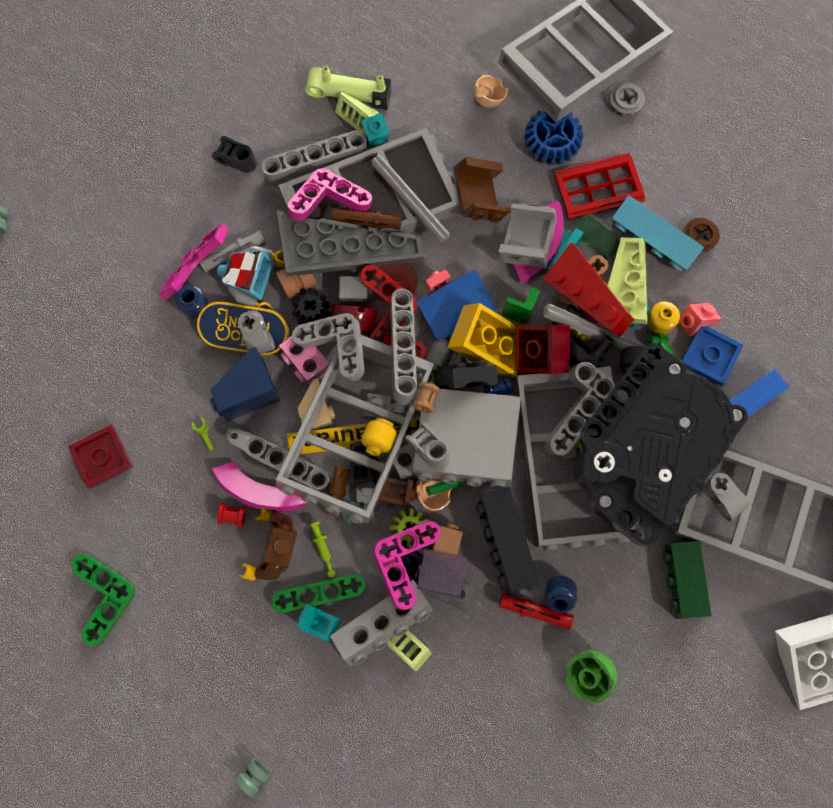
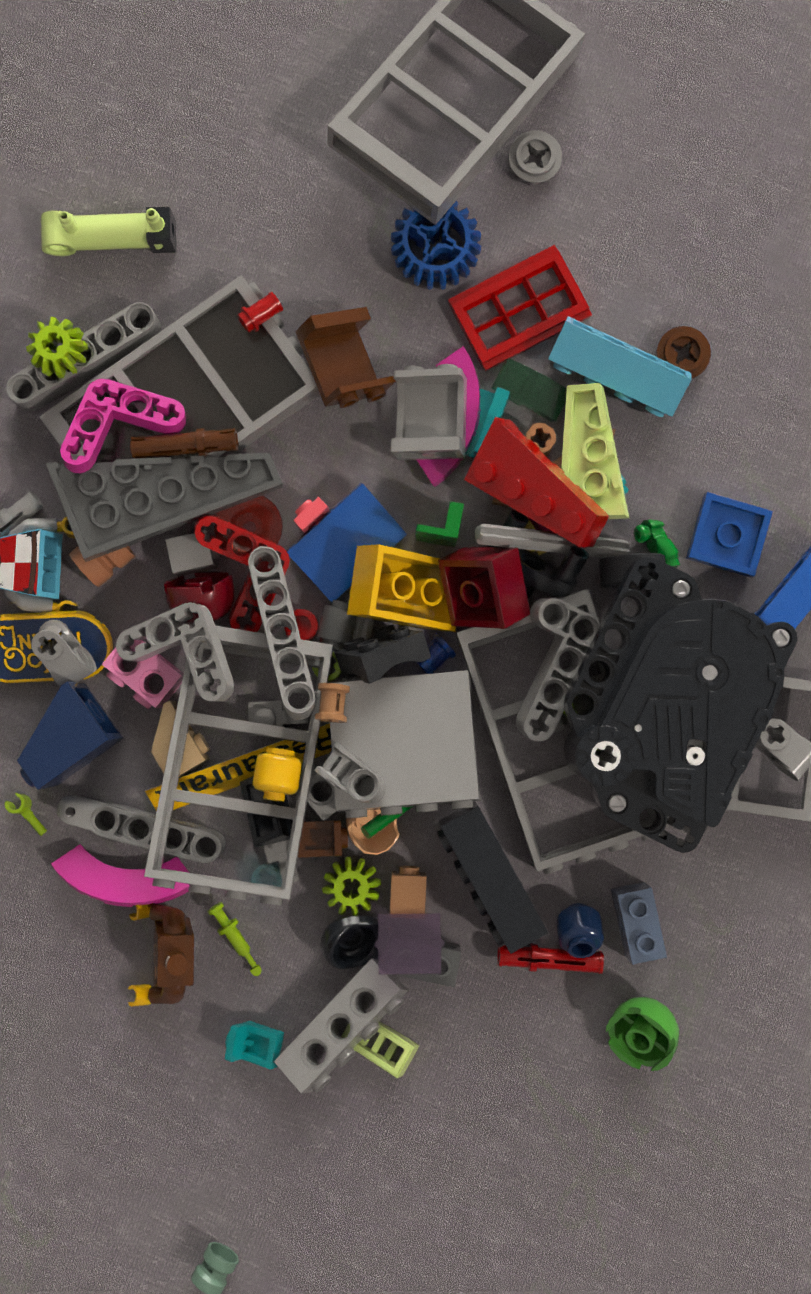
camera: 15 degrees left, 10 degrees up
(231, 515) = (96, 922): red bush -> none
(301, 144) = (48, 340): none -> lime gear
(313, 301) = (135, 581): black gear -> none
(319, 595) = (247, 1005): green beam -> none
(338, 485) = (237, 852): dark orange pin -> none
(363, 110) = (147, 277): yellowish green slope -> none
(376, 130) = (165, 295): teal bracket -> none
(394, 560) = (339, 944): dark pink beam -> none
(410, 198) = (241, 396): light grey axle -> none
(434, 150) = (259, 312): none -> red pin
(489, 91) = (324, 191): light nougat hair -> none
(602, 598) = (638, 923): none -> sand blue brick
(663, 317) = (649, 486): yellow head -> none
(687, 580) = (750, 870): dark green brick -> none
(698, 316) = (701, 482): coral bracket -> none

